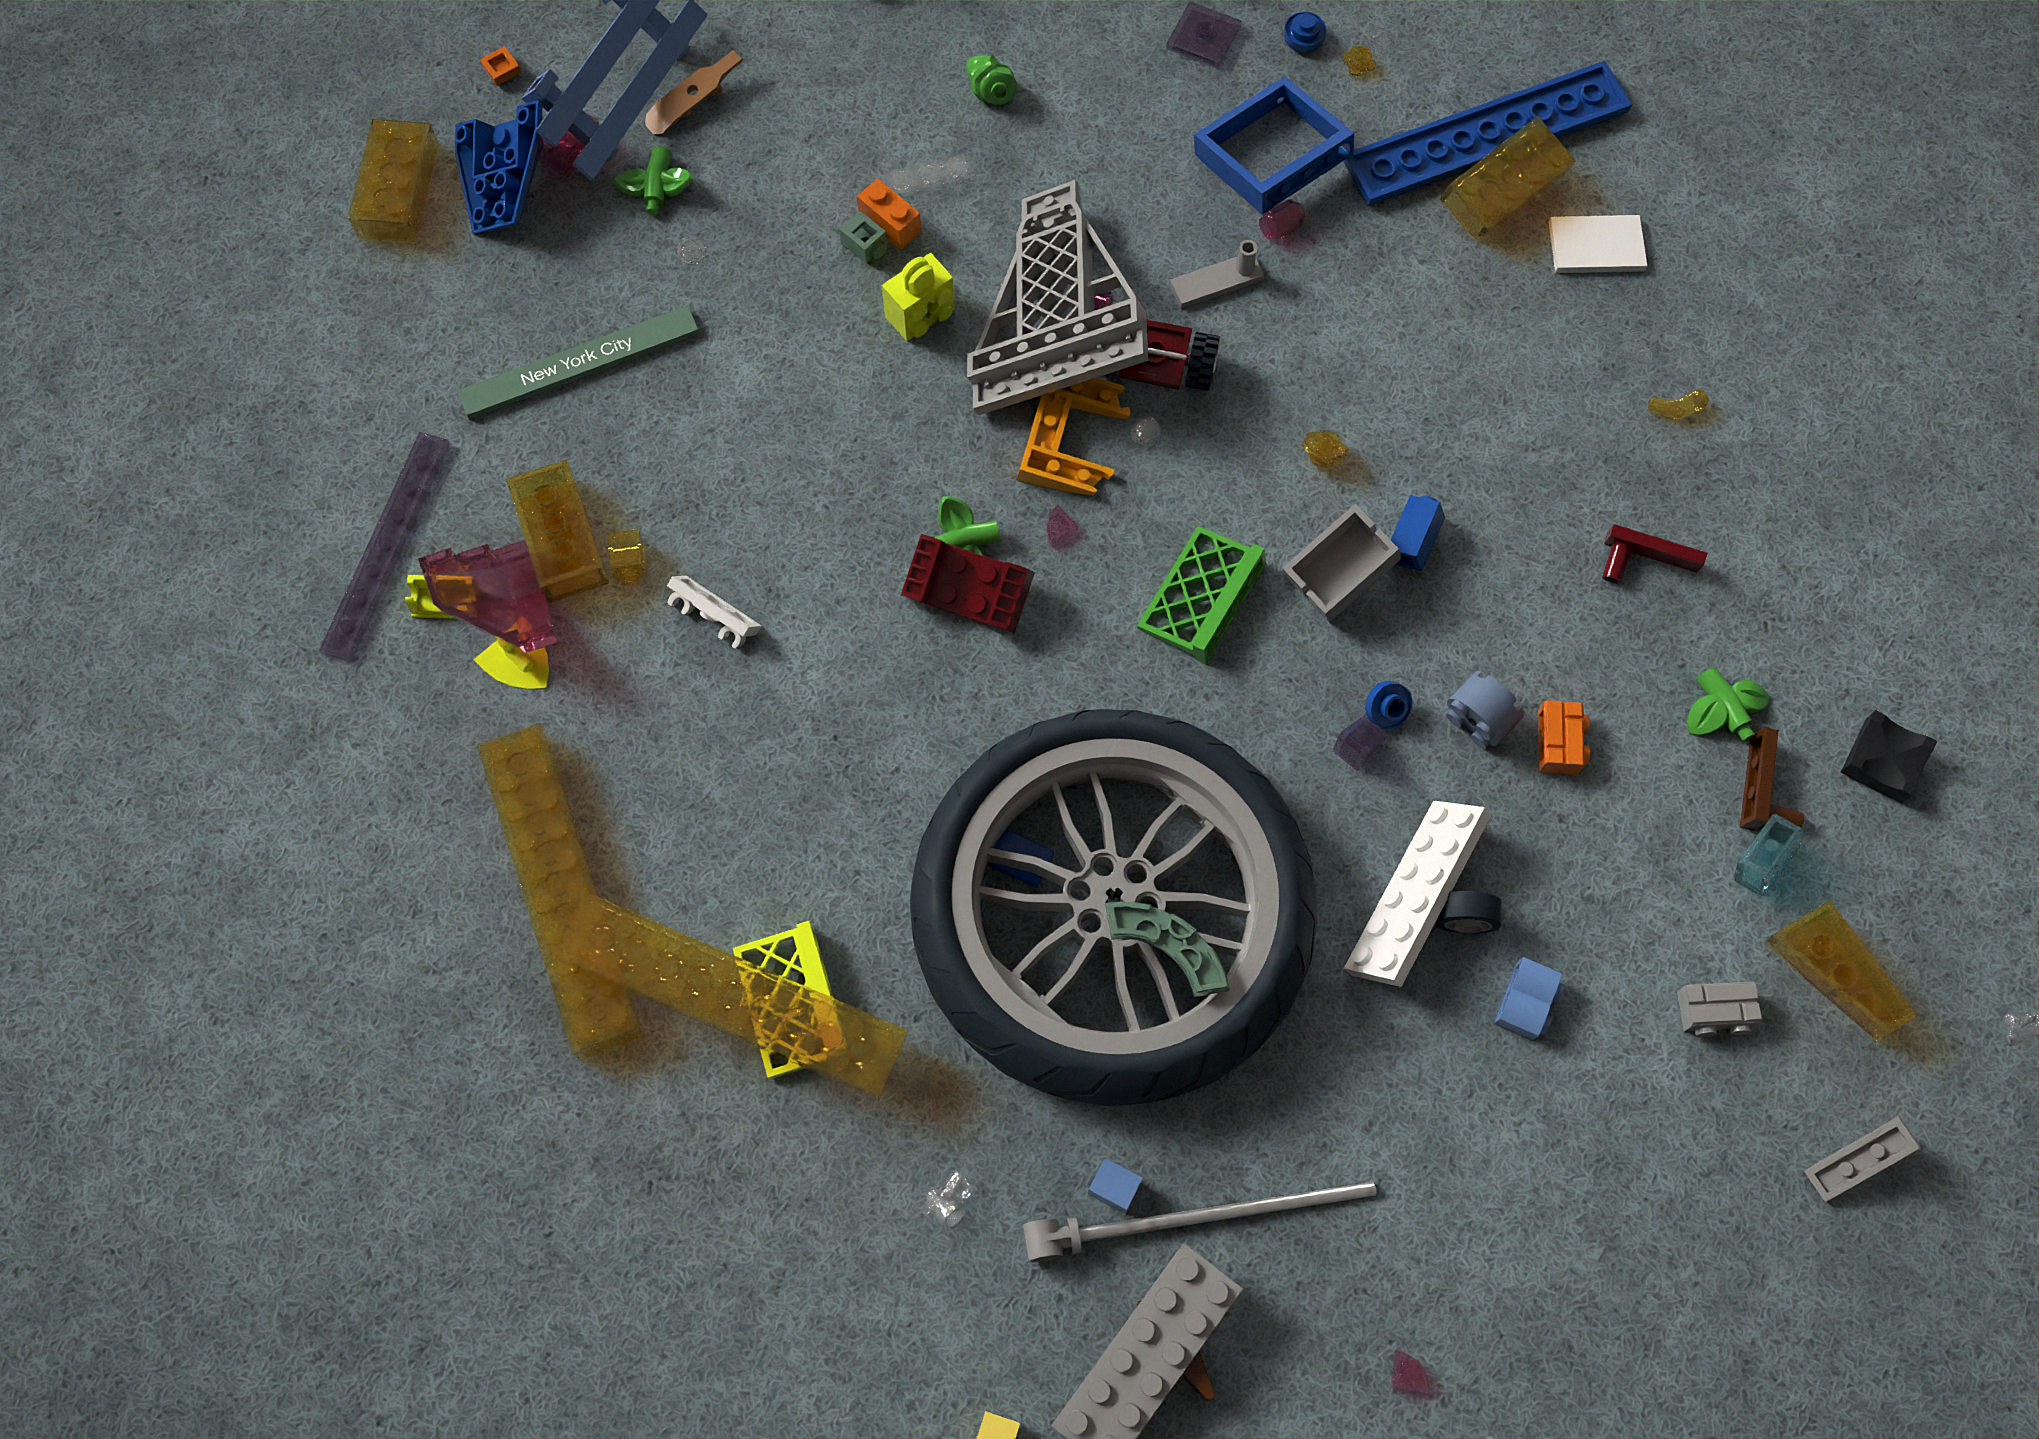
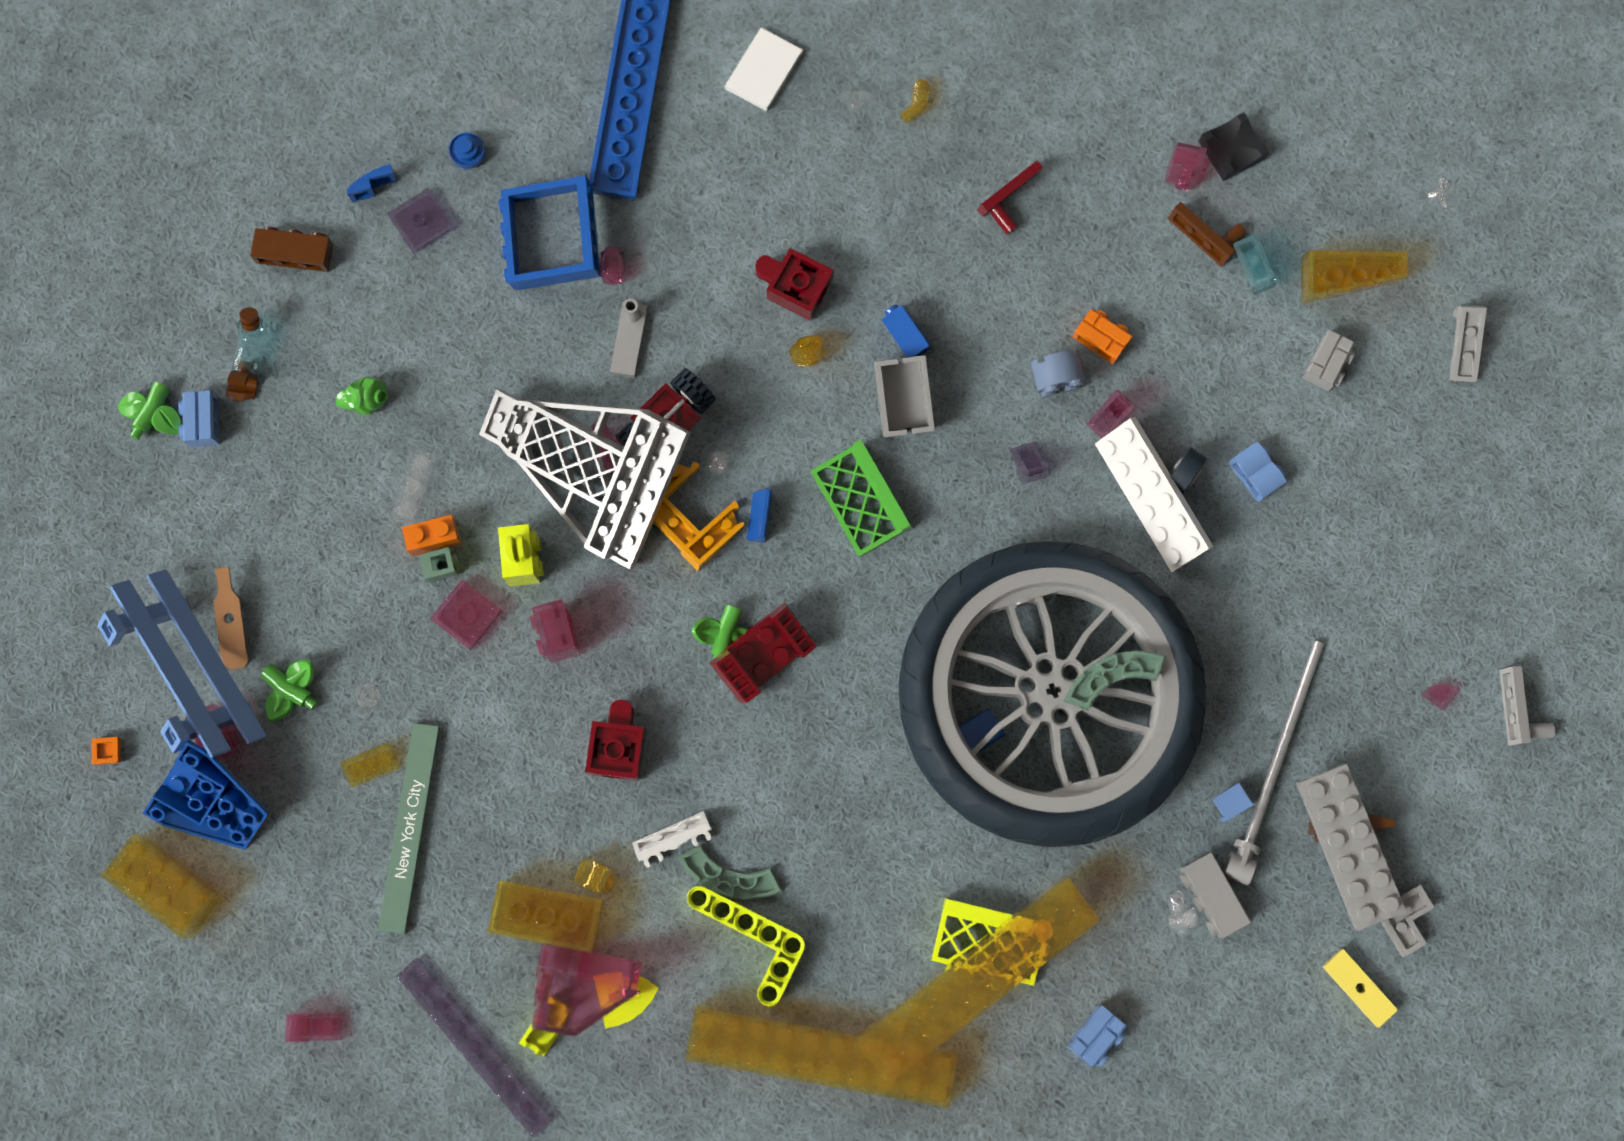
camera: 60 degrees left, 10 degrees up
(325, 386) = (313, 1027): none -> clear pink plate
(622, 291) = (370, 765): none -> clear yellow slope
(658, 748) = (755, 933): none -> neon yellow beam
(698, 690) = (727, 882): none -> sand green tile
(748, 1183) = (1097, 1037): none -> medium blue brick
(775, 485) = (616, 745): none -> dark red brick
(828, 291) = (466, 615): none -> clear pink plate
(861, 373) = (555, 631): none -> clear pink piece
(991, 1227) = (1214, 896): none -> light grey brick
(1059, 527) = (753, 563): clear pink tile -> none
(1115, 505) = (759, 515): none -> blue slope
(1359, 53) = (514, 122): clear yellow plate -> none
(1388, 705) = (1016, 429): blue plate -> none
(1390, 394) = (795, 282): none -> dark red brick
(1481, 792) = (1111, 414): none -> clear pink slope
(1507, 179) = (682, 96): clear yellow brick -> none
(1726, 705) = (1141, 219): bright green plant -> none
(1823, 713) = (1186, 166): none -> clear pink brick

